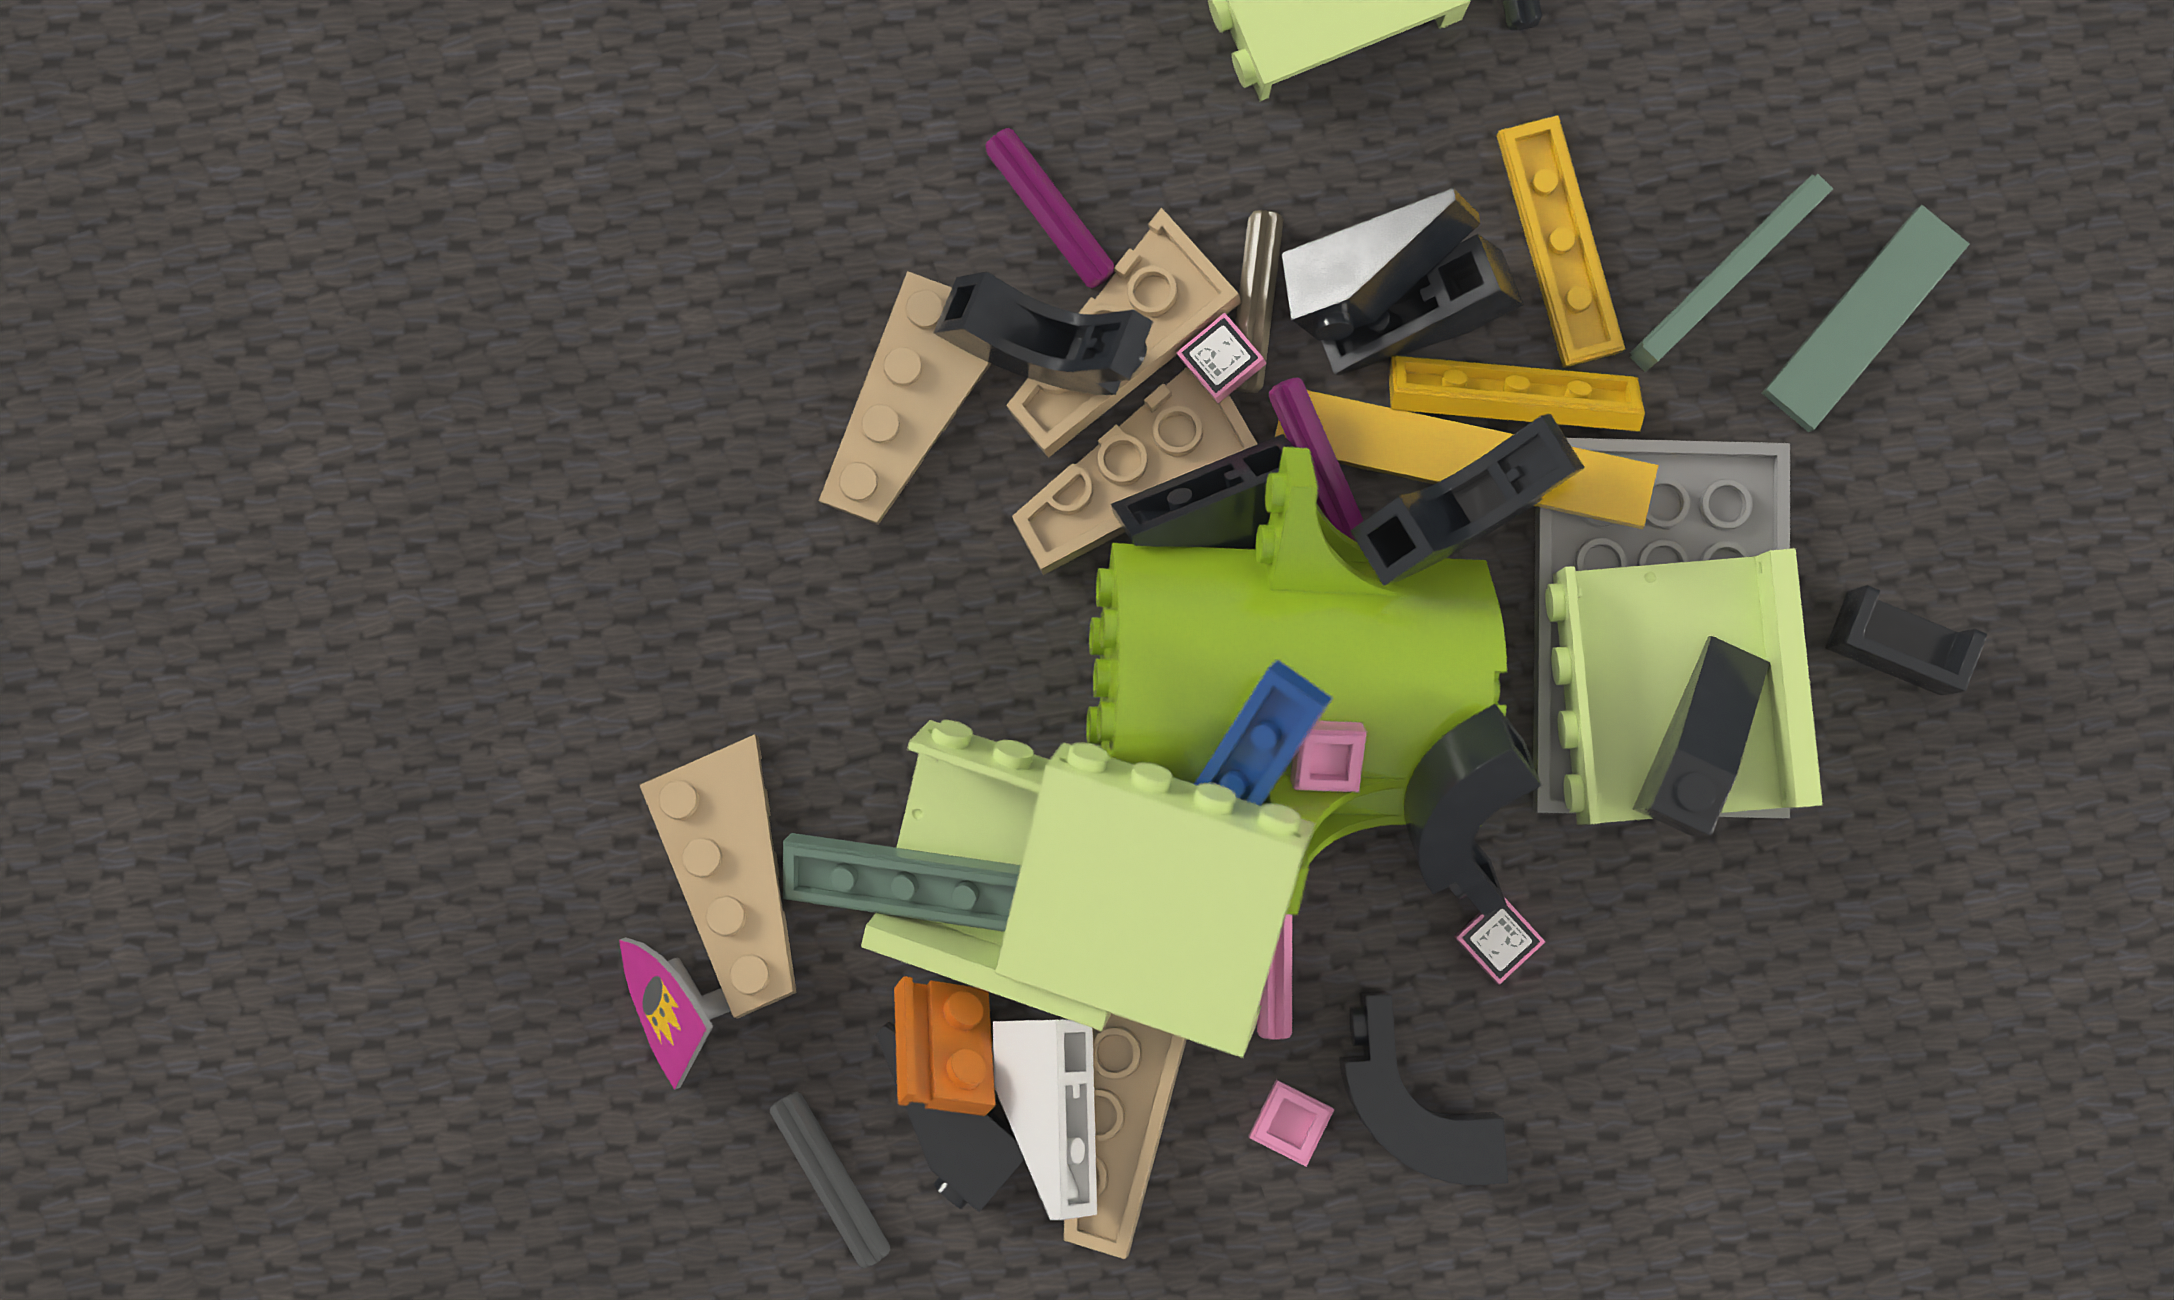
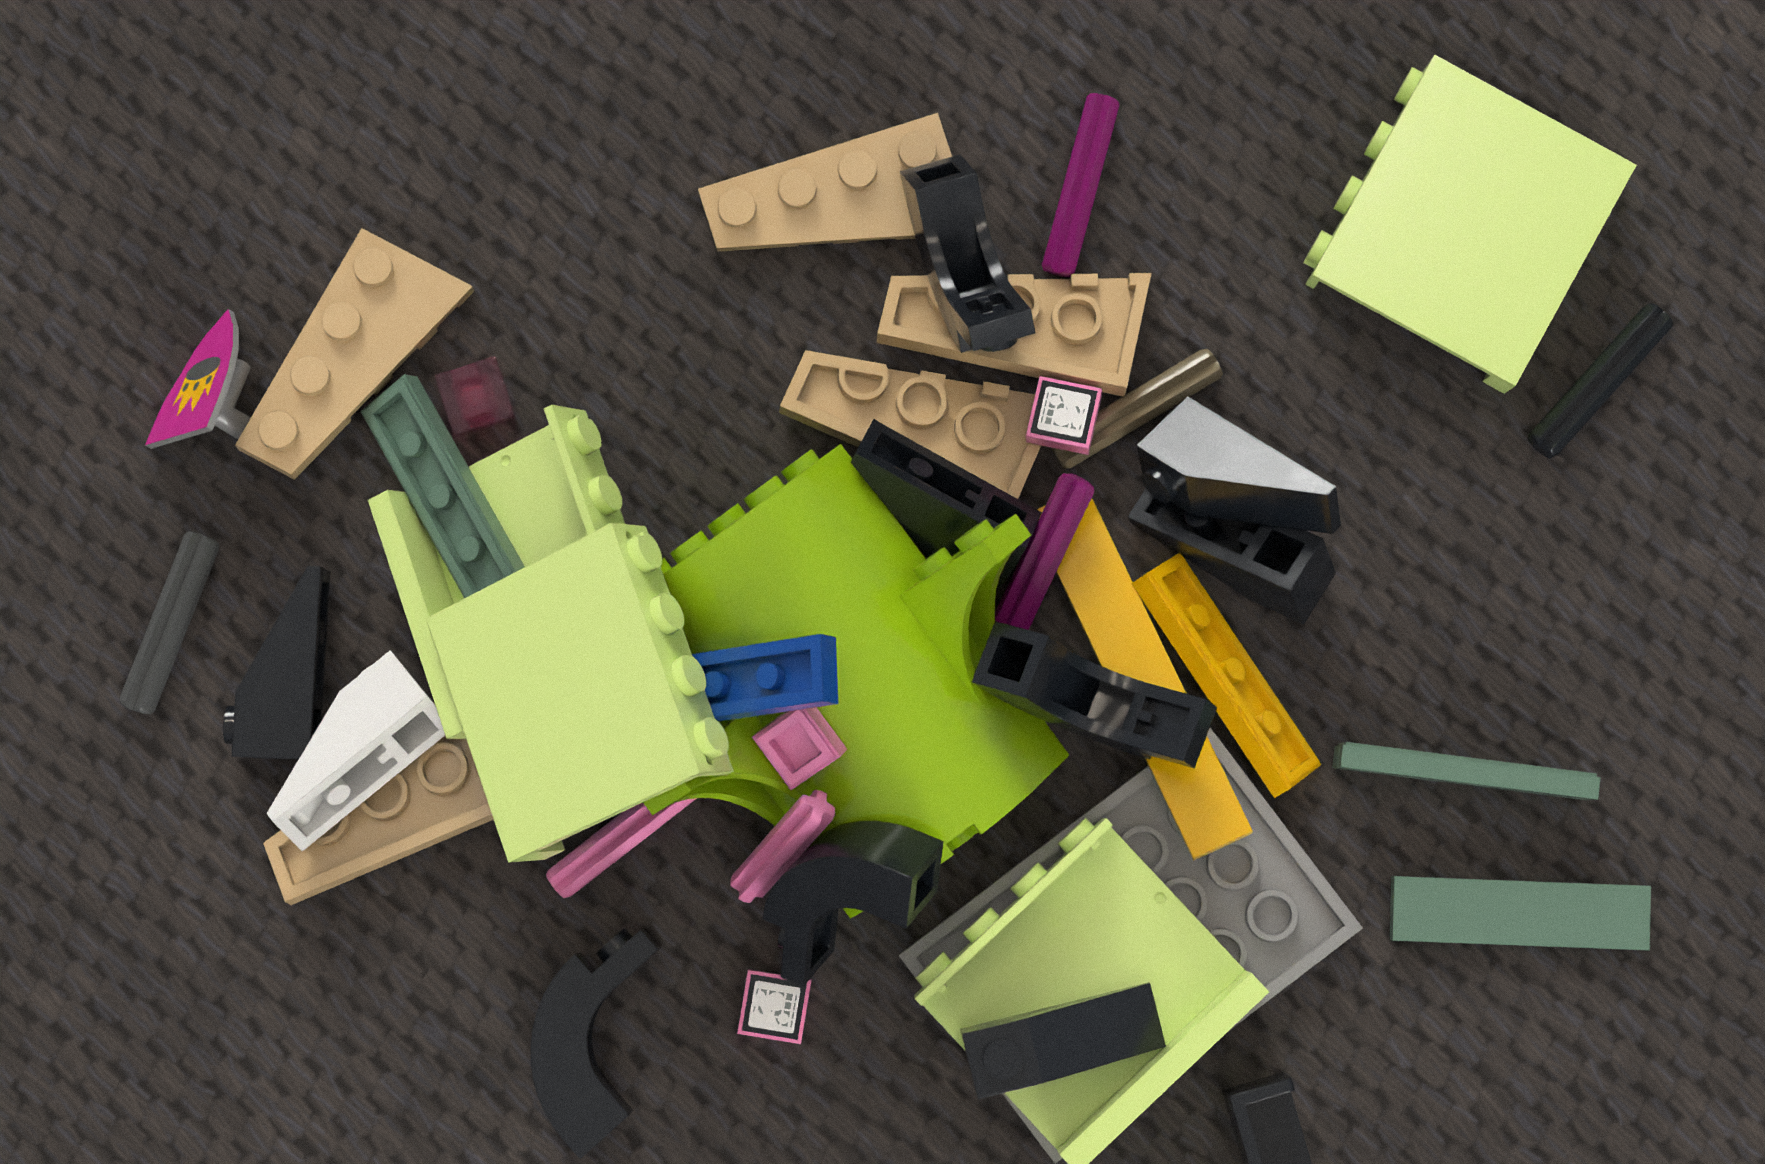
camera: 55 degrees right, 0 degrees up
(842, 800) = (475, 396): none -> clear pink tile
(944, 1046) = (339, 627): orange plate -> none
(1291, 1122) = (497, 953): bright pink tile -> none
(1390, 833) = (782, 846): none -> bright pink axle
(1560, 241) = (1384, 615): yellow tile -> none

